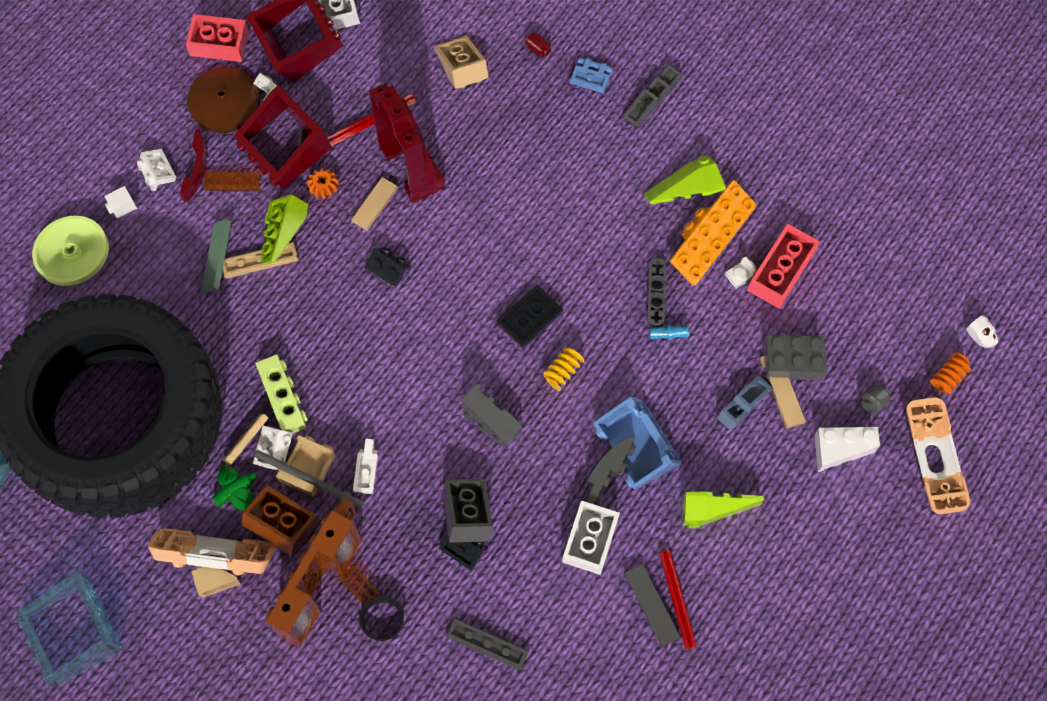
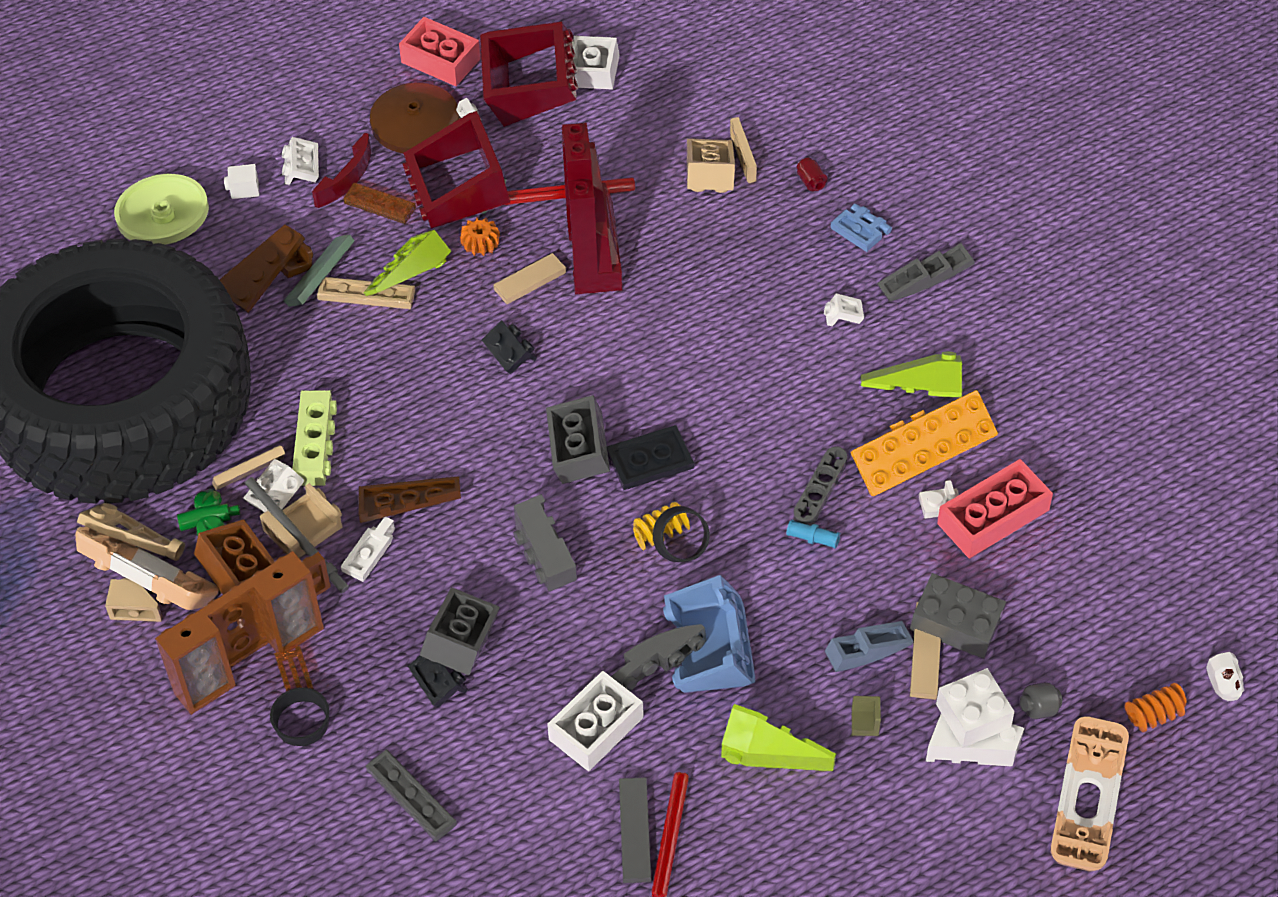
camera: 25 degrees right, 15 degrees down
(158, 521) = (106, 517): none -> tan plate
(170, 276) = (259, 269): none -> reddish brown wing
(195, 254) = (299, 262): none -> reddish brown bracket
(369, 418) = (400, 497): none -> reddish brown wing
(475, 324) = (577, 439): none -> dark grey brick
(480, 42) = (743, 150): none -> tan tile
(569, 366) = (659, 527): none -> black tyre
(610, 146) = (843, 308): none -> white bracket
(767, 457) = (865, 716): none -> olive panel
(845, 429) = (975, 708): none -> white brick

